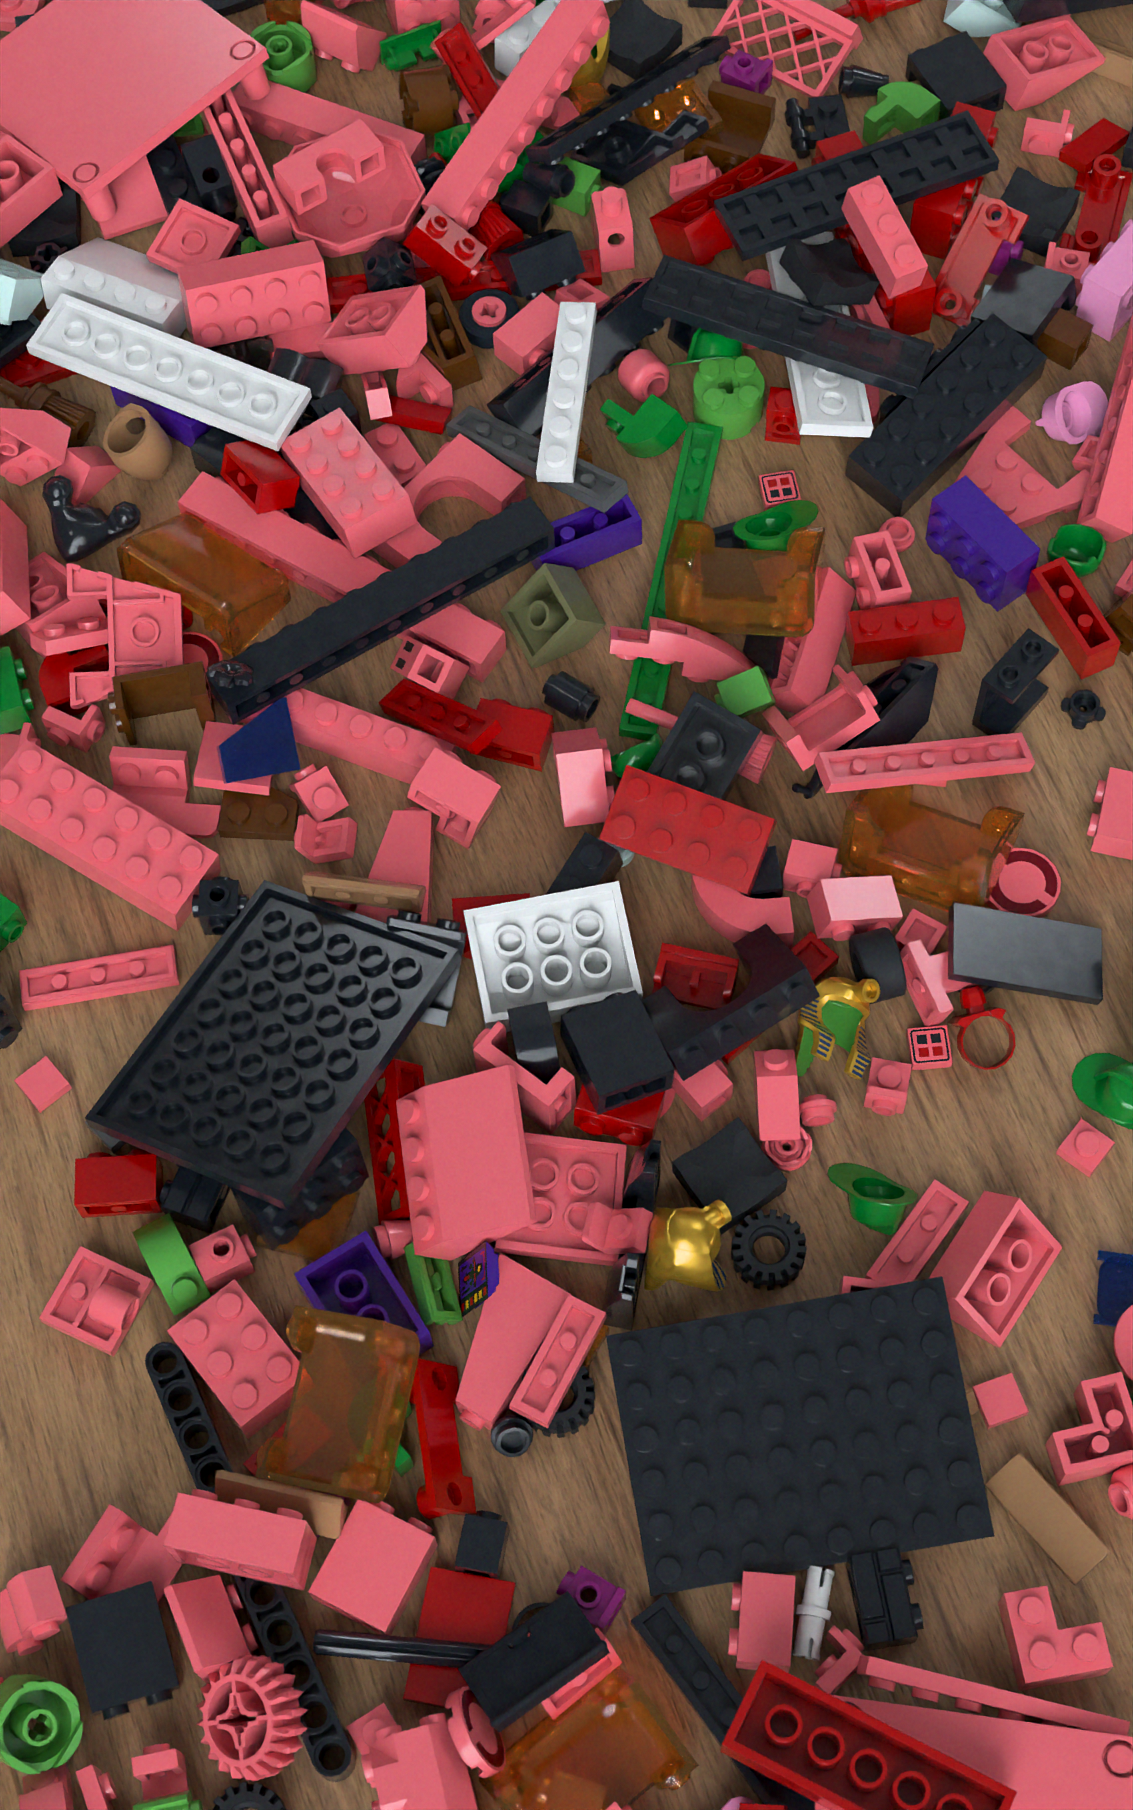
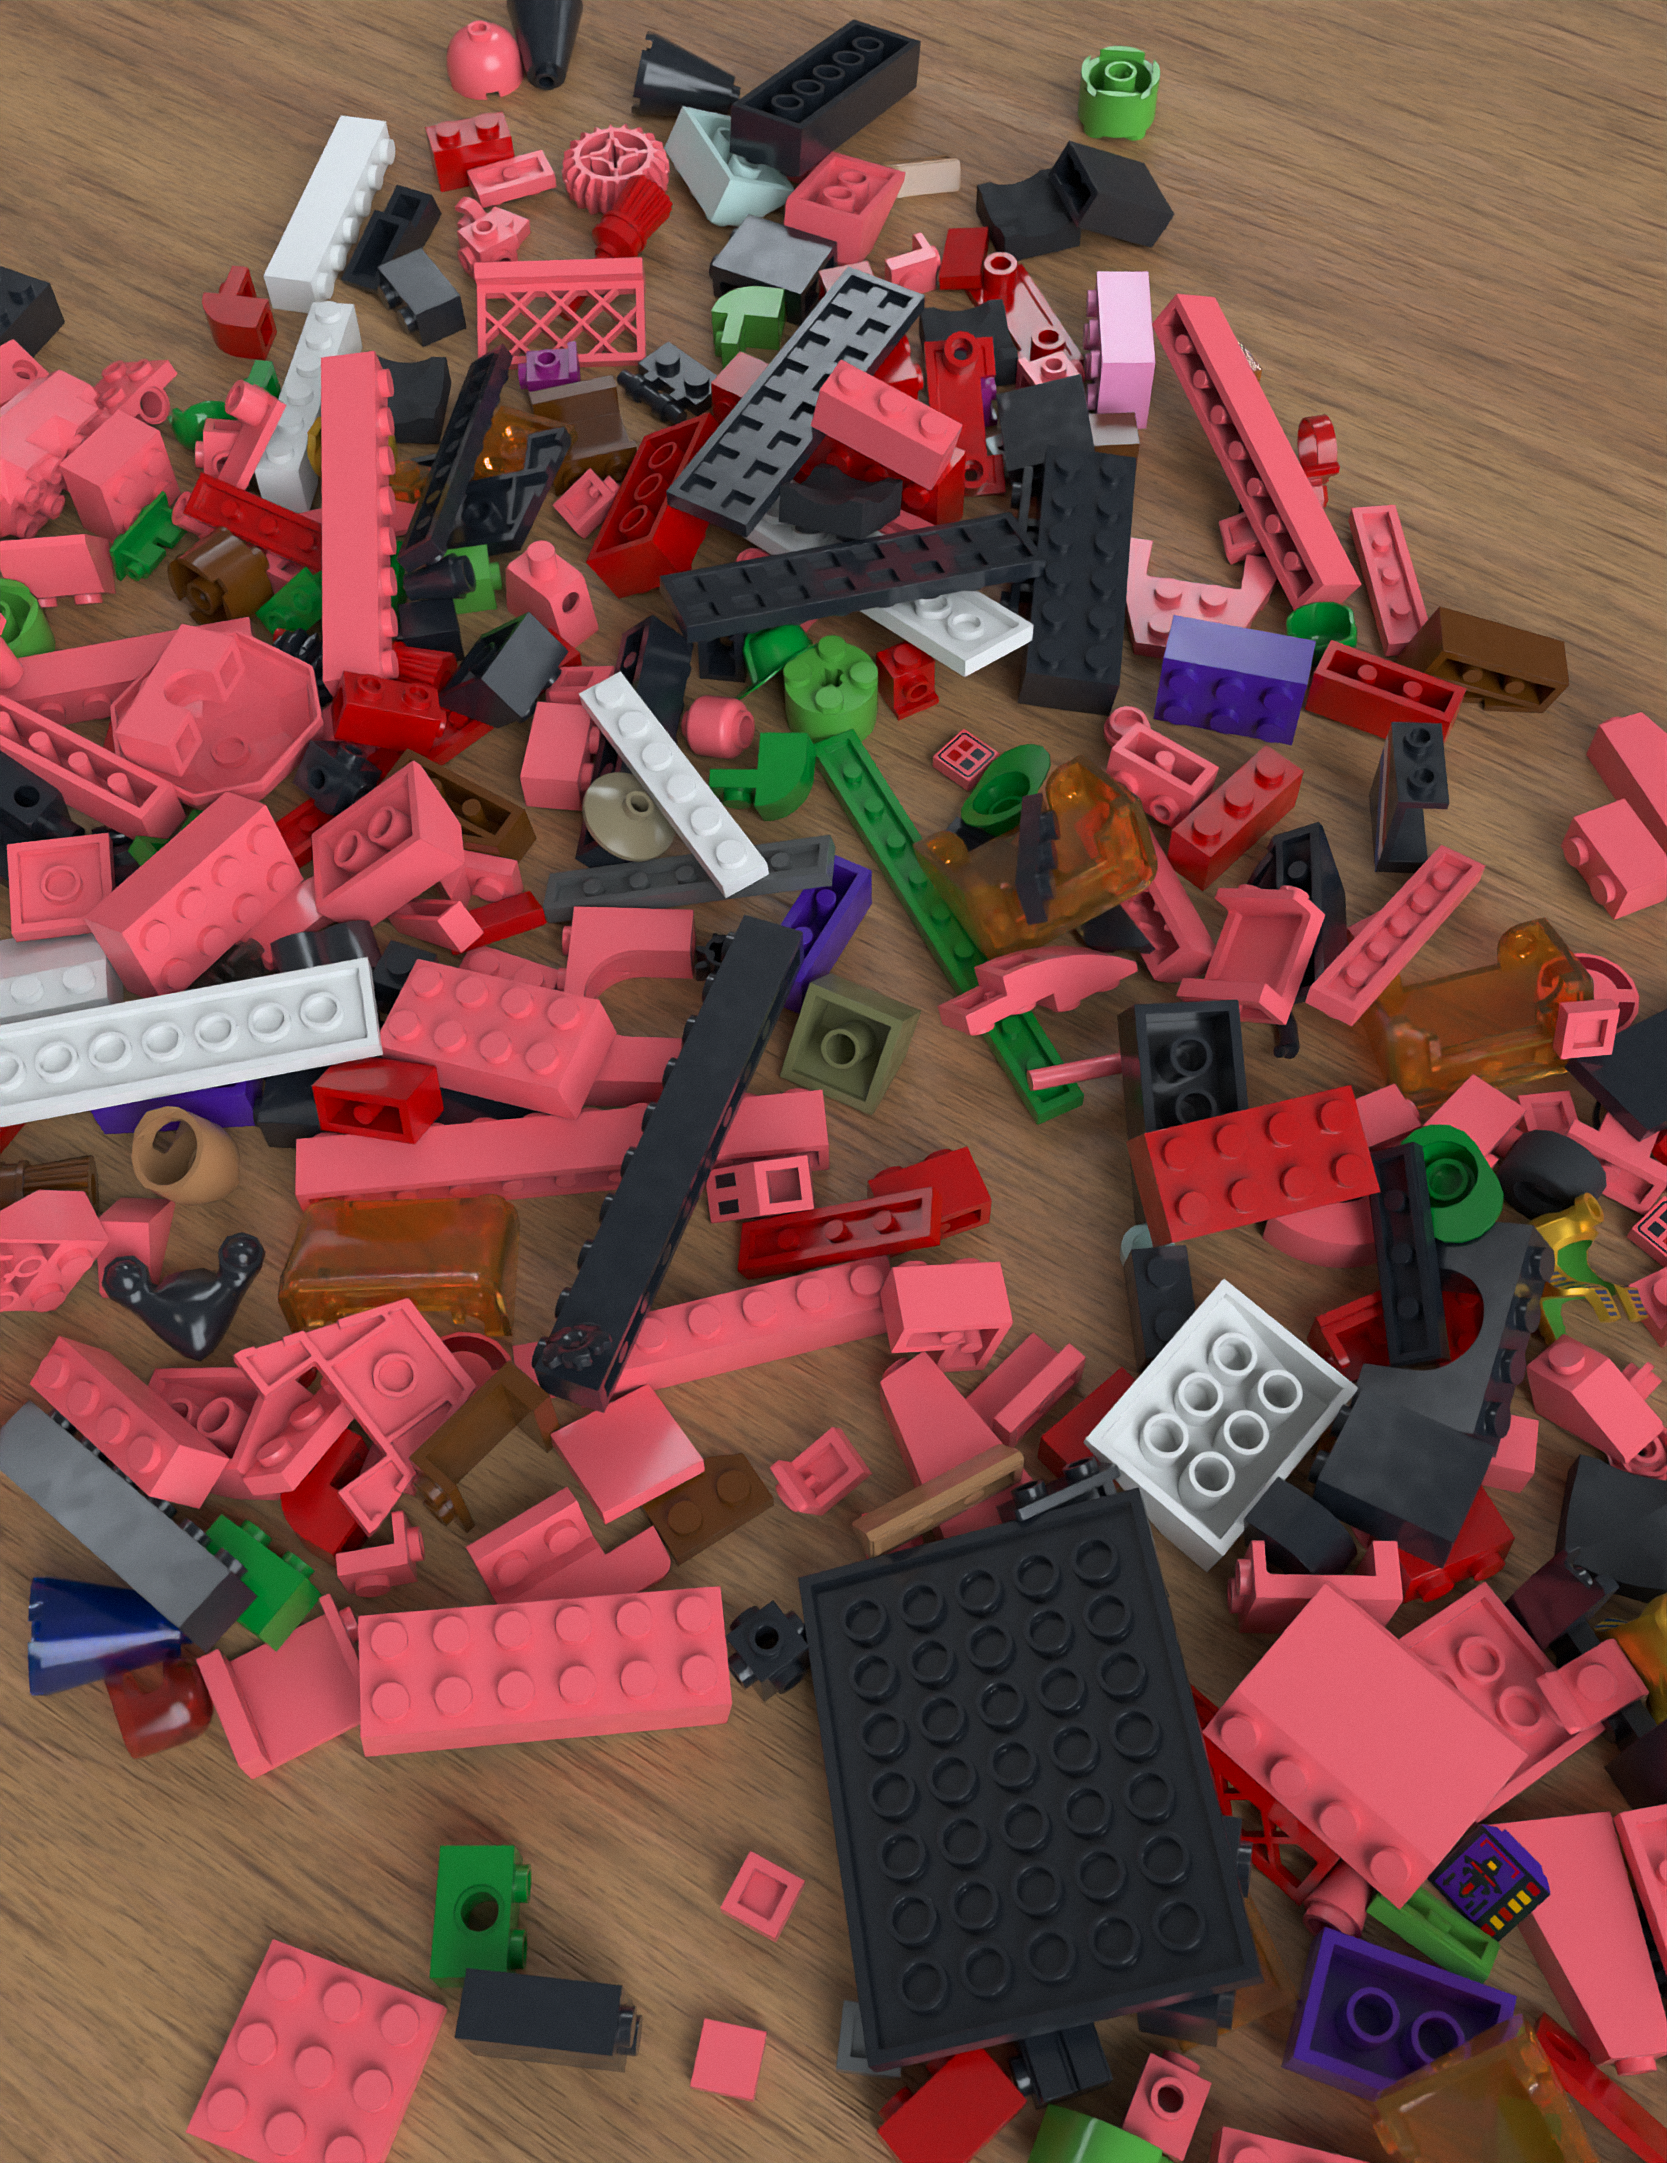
camera: 40 degrees left, 5 degrees down
(98, 977) = (679, 1861): coral tile -> none
(120, 1022) = (762, 1896): none -> coral plate
(261, 746) = (661, 1416): clear blue wing -> none
(318, 792) = (758, 1424): coral bracket -> none
(475, 874) = (1026, 1388): none -> coral panel
(477, 312) = (499, 756): black wheel -> none
(515, 400) = (616, 825): none -> dark tan dish
(570, 696) = (951, 1116): black brick -> none
(581, 769) = (1056, 1190): coral brick -> none
(638, 756) = (1092, 1132): green hair -> none
(734, 572) = (1037, 858): none -> black plate
(737, 941) = (1407, 1259): none -> black tile
(745, 693) = (1148, 978): bright green brick -> none
(795, 916) = (1460, 1183): none -> green piece
(860, 82) = (678, 319): black cone -> none
(970, 890) = (1586, 1028): none -> coral plate
(1074, 412) = (1188, 509): bright pink piece -> none
(1087, 700) = (1471, 783): black plate -> none

